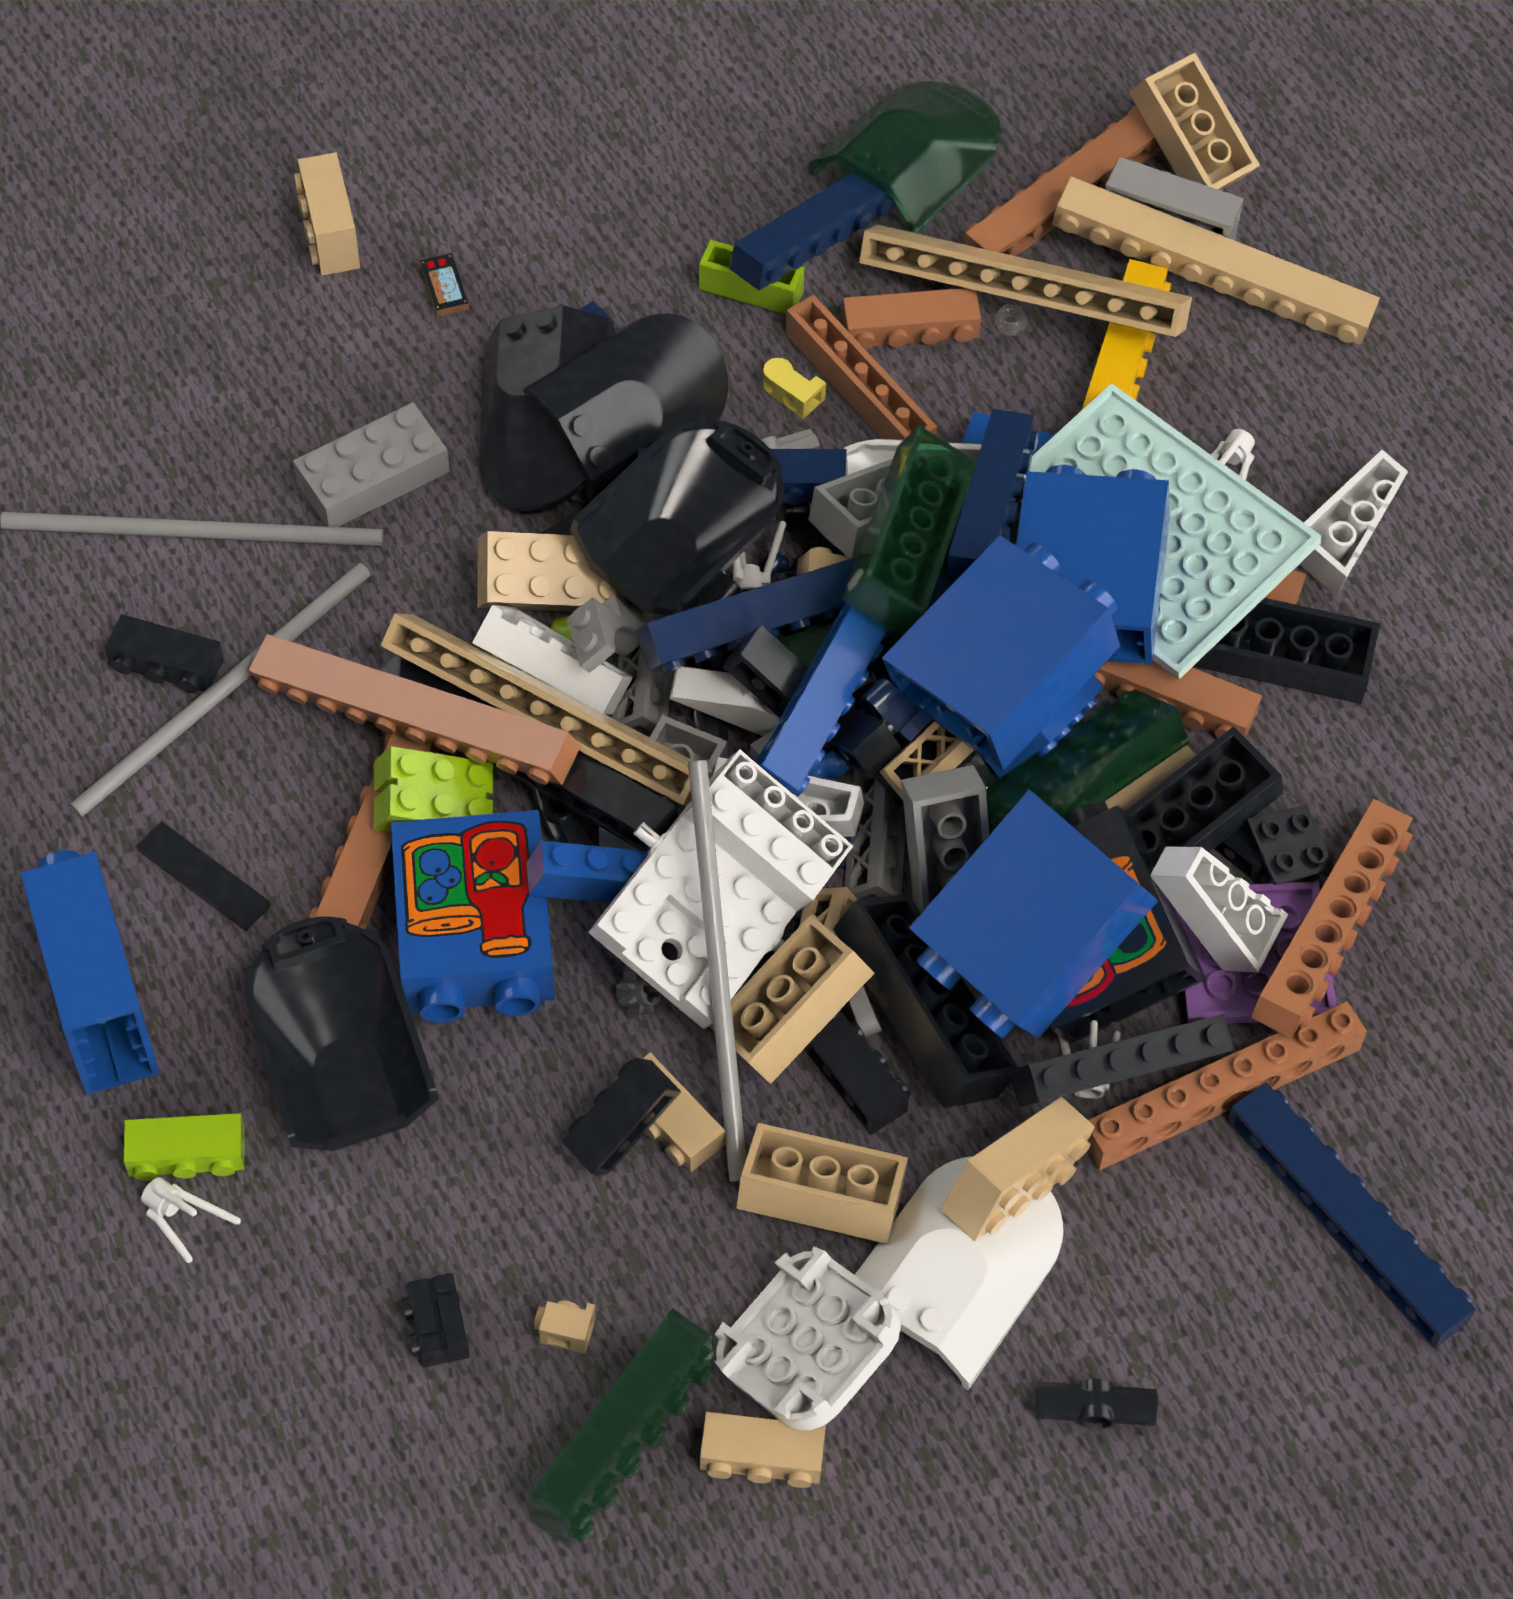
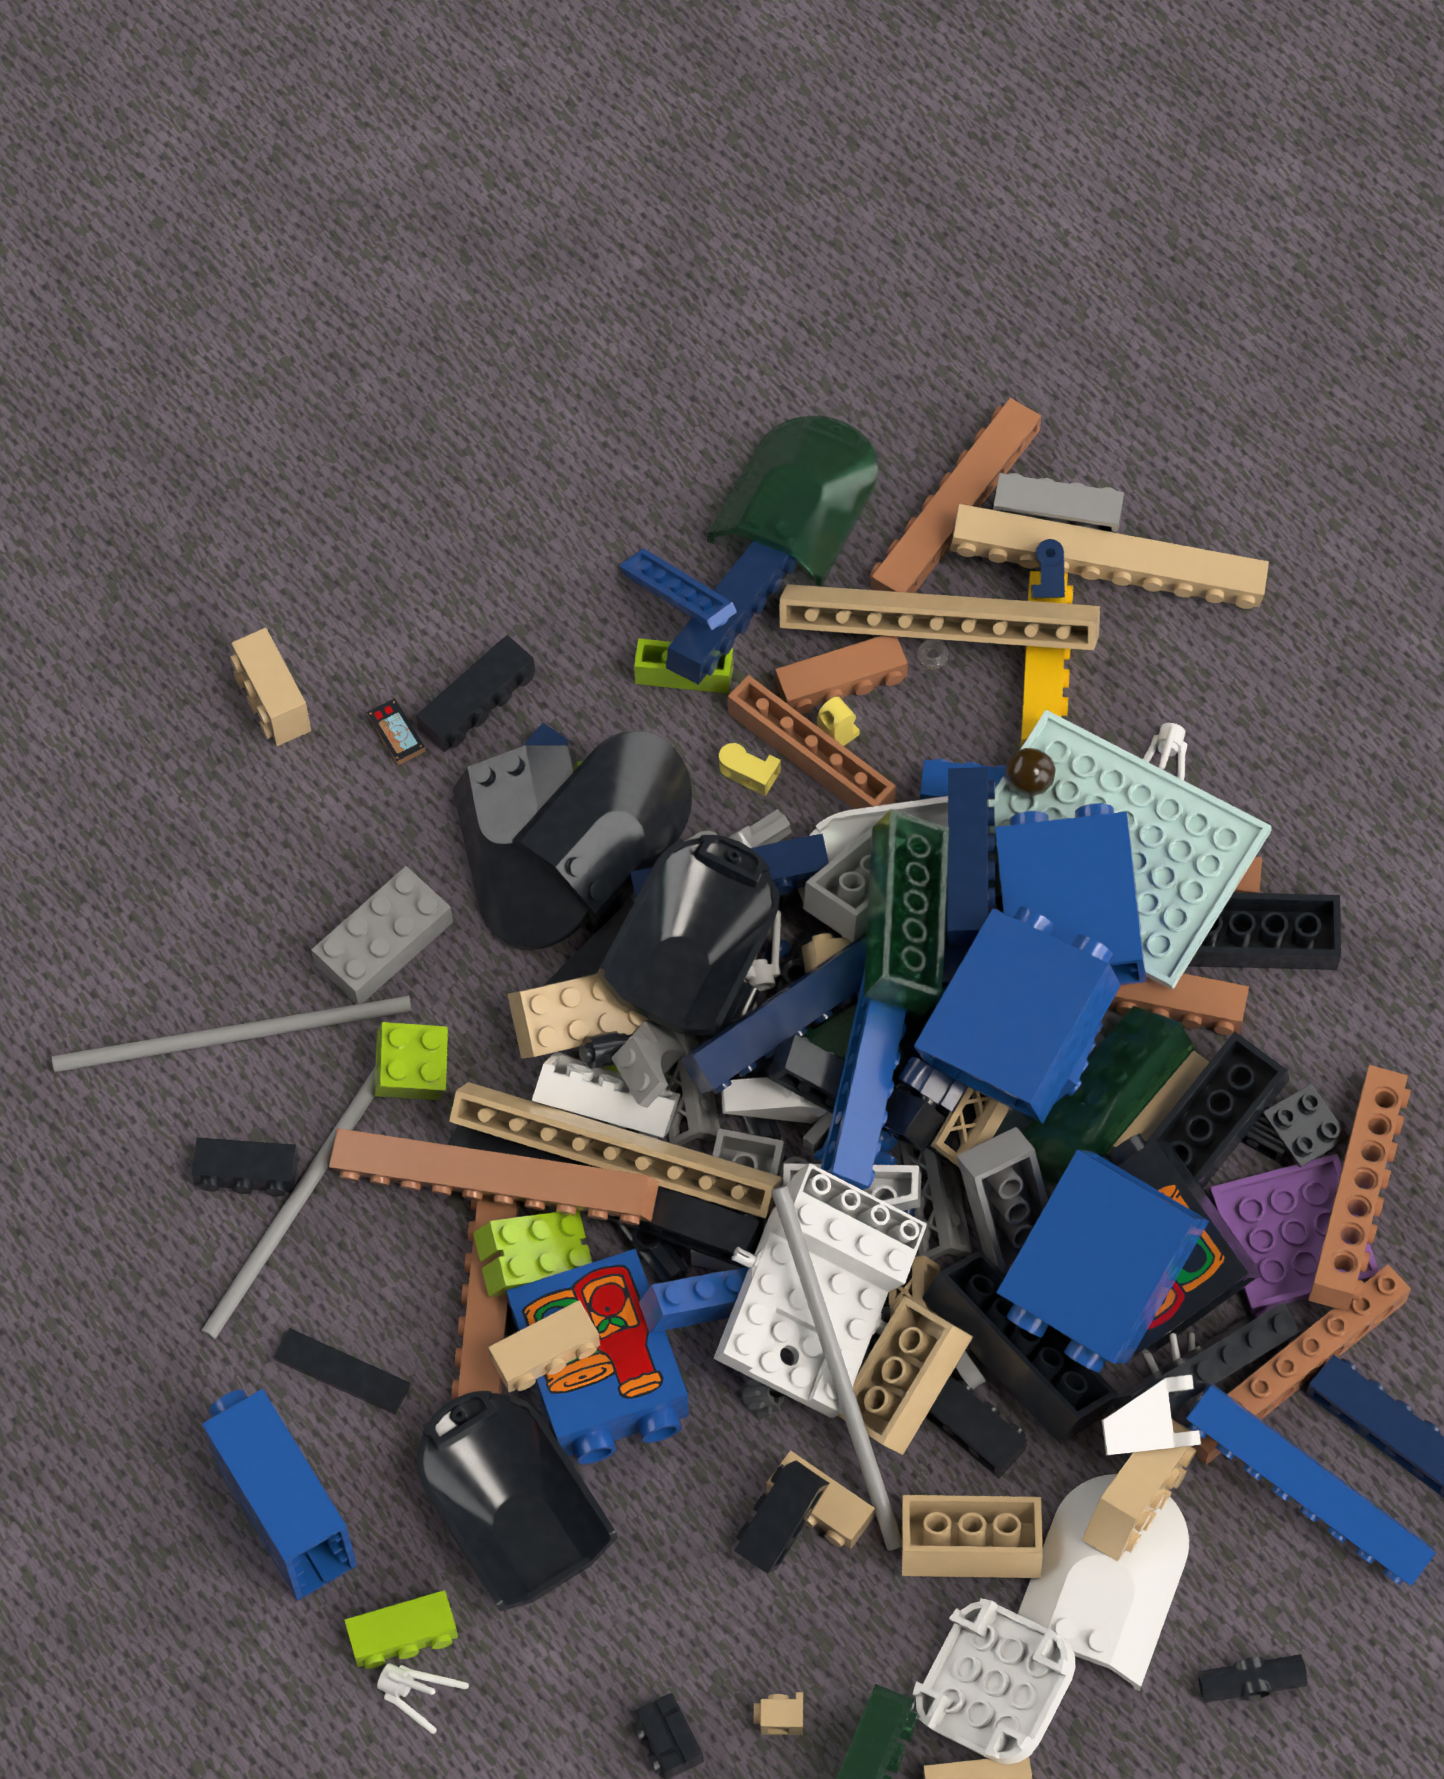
camera: 10 degrees left, 5 degrees up
(363, 587) = (411, 1061): none -> lime brick
(412, 883) = (544, 1347): none -> tan brick
(534, 263) = (476, 693): none -> black brick
(556, 608) = (600, 1048): none -> black brick
(763, 199) = (678, 589): none -> blue plate
(894, 356) = (838, 721): none -> light yellow leg
(1041, 1096) = (1147, 1421): none -> white flag
(1079, 436) = (1029, 772): none -> dark brown hair
(1152, 245) = (1051, 559): none -> dark blue leg
(1194, 125) = (1060, 423): tan brick -> none
(1208, 1207) = (1310, 1484): none -> blue brick
(1219, 908) = (1260, 1208): white wedge -> none
(1350, 520) = (1291, 792): white wedge -> none

